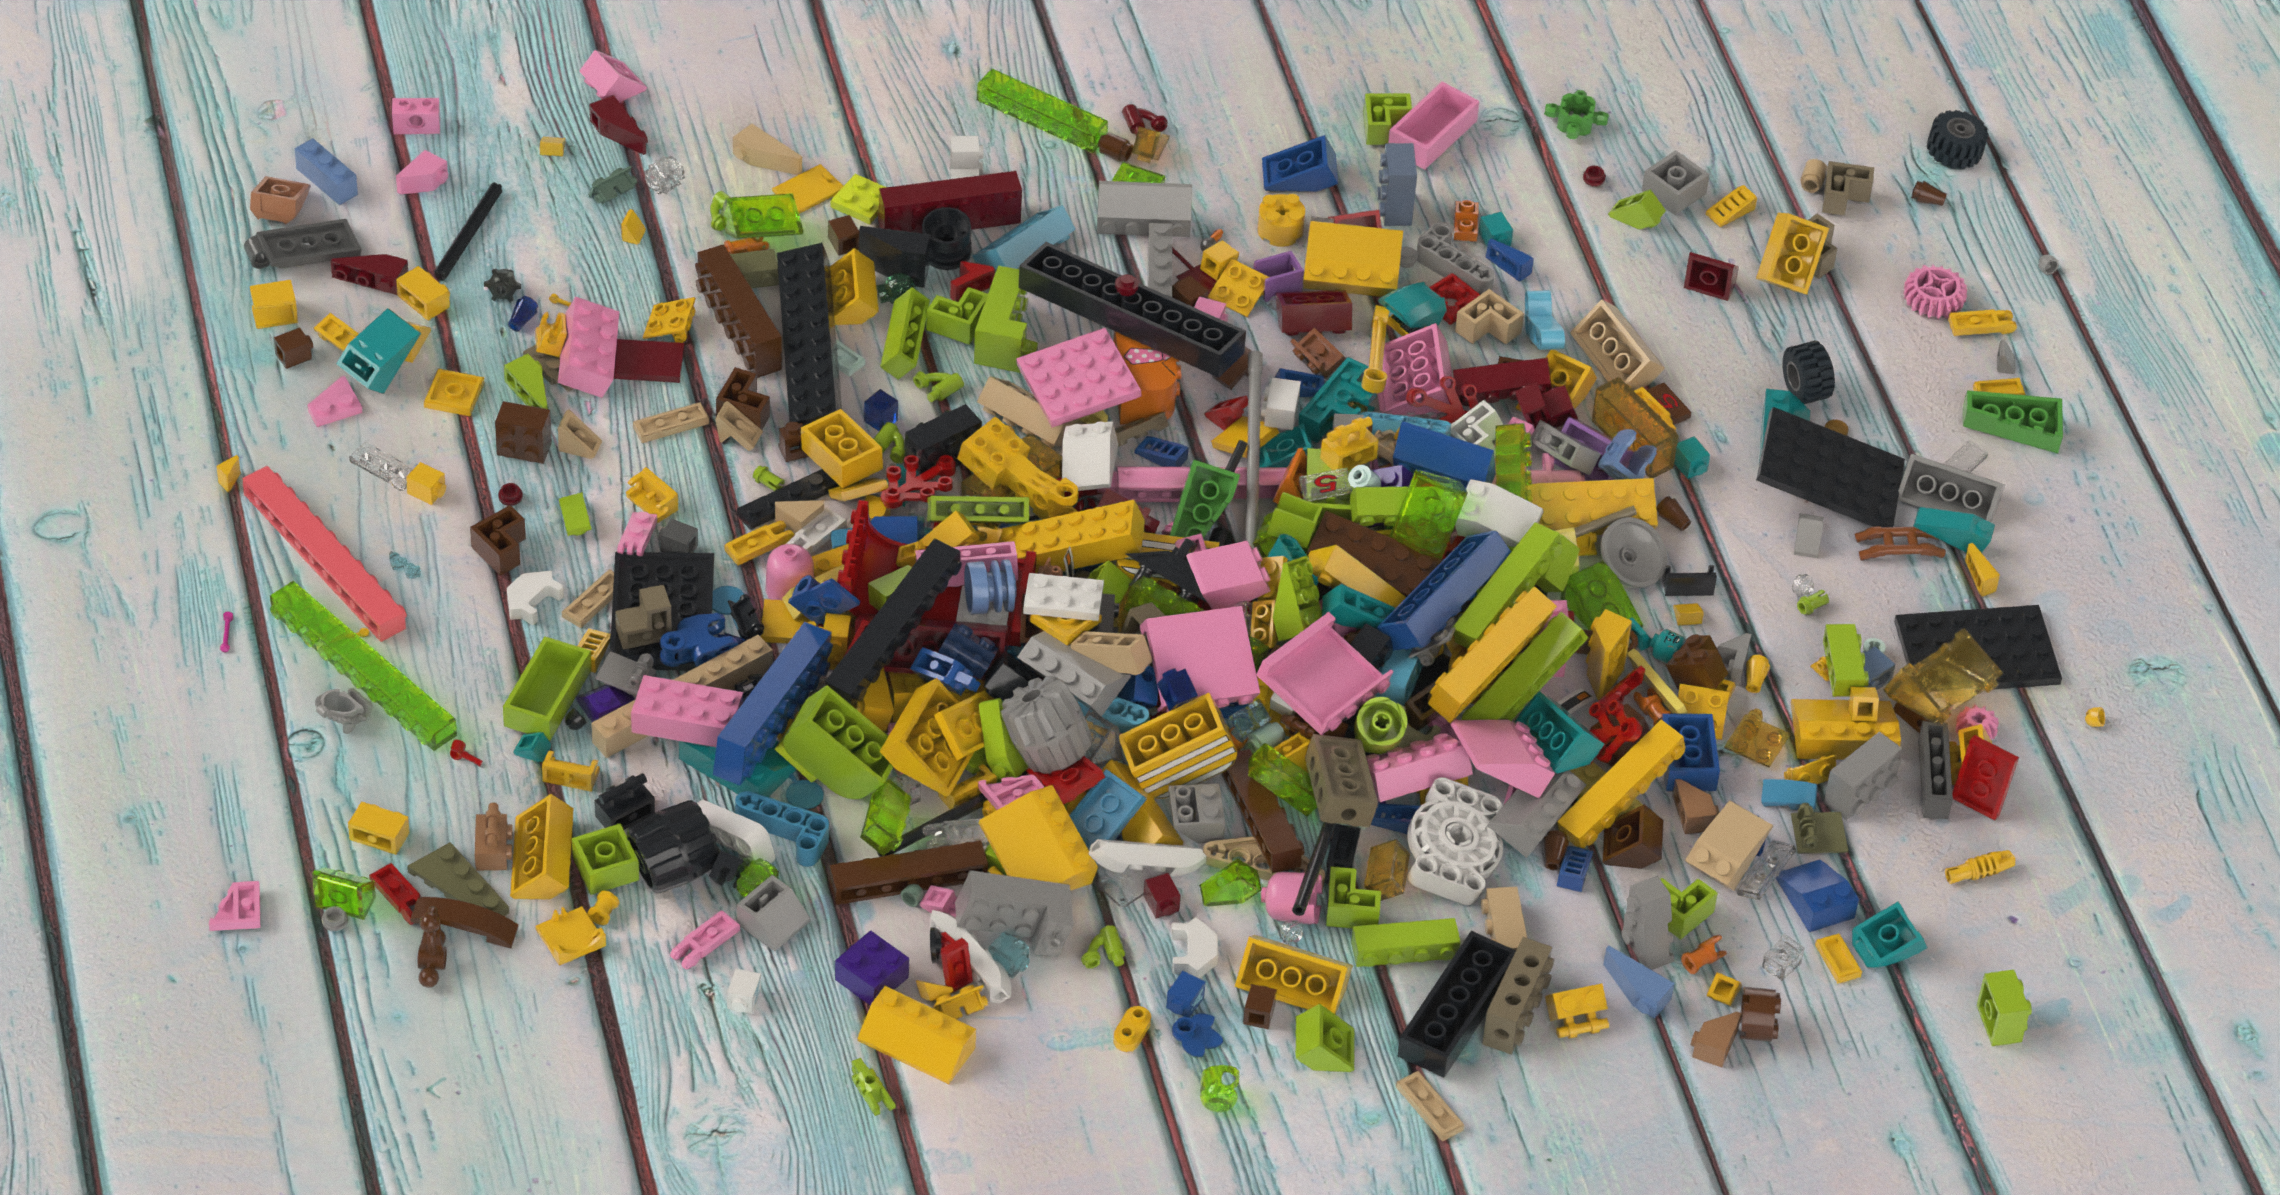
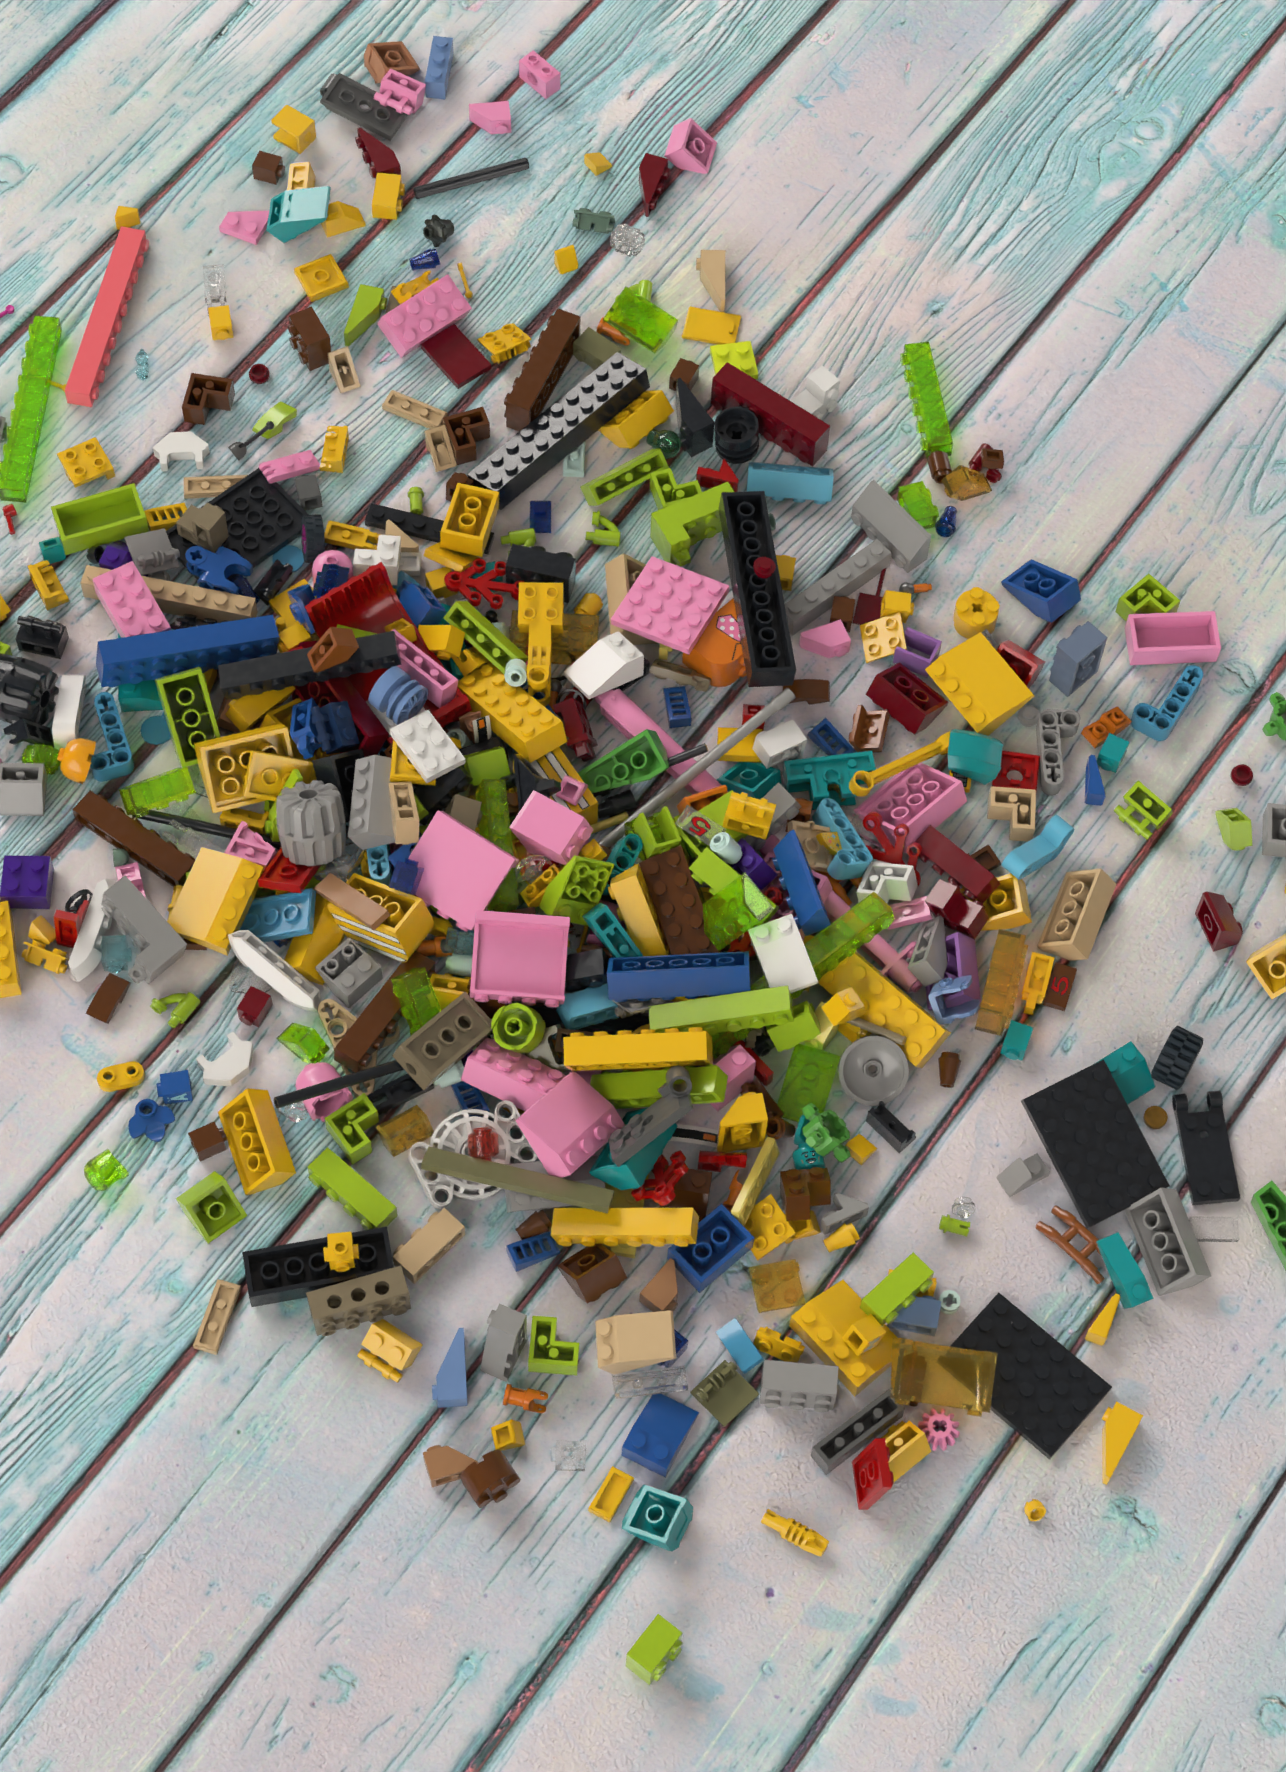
camera: 50 degrees right, 15 degrees up
(326, 209) = (400, 92): none -> bright pink brick
(469, 664) = (86, 462): none -> yellow piece
(578, 557) = (239, 449): none -> hinge
(739, 560) = (312, 537): none -> black wheel
(792, 852) = (76, 759): none -> light orange cylinder
(818, 562) = (330, 577): none -> clear blue brick
(819, 528) = (387, 552): none -> white brick
(909, 586) = (332, 648): none -> dark orange slope
(1042, 506) = (520, 668): none -> light aqua brick
(1047, 987) = (107, 998): none -> reddish brown slope
(1149, 108) = (992, 458): none -> reddish brown plate
(1153, 746) = (352, 901): none -> medium nougat tile
(1172, 176) = (947, 522): none -> clear blue cone
(1463, 817) = (483, 1143): none -> clear red head
(1472, 964) = (341, 1251): none -> yellow brick
(1496, 180) = (1173, 702): none -> dark azure beam
(1519, 814) = (517, 1179): none -> olive tile
(1565, 668) = (655, 1119): none -> dark grey hinge
(1567, 242) = (1147, 805): none -> lime brick
(1575, 514) = (844, 1007): none -> yellow slope
(1661, 614) = (826, 1132): none -> bright green piece
(1898, 422) = (1209, 1159): none -> black hinge
(2084, 630) = (1116, 1434): none -> yellow slope

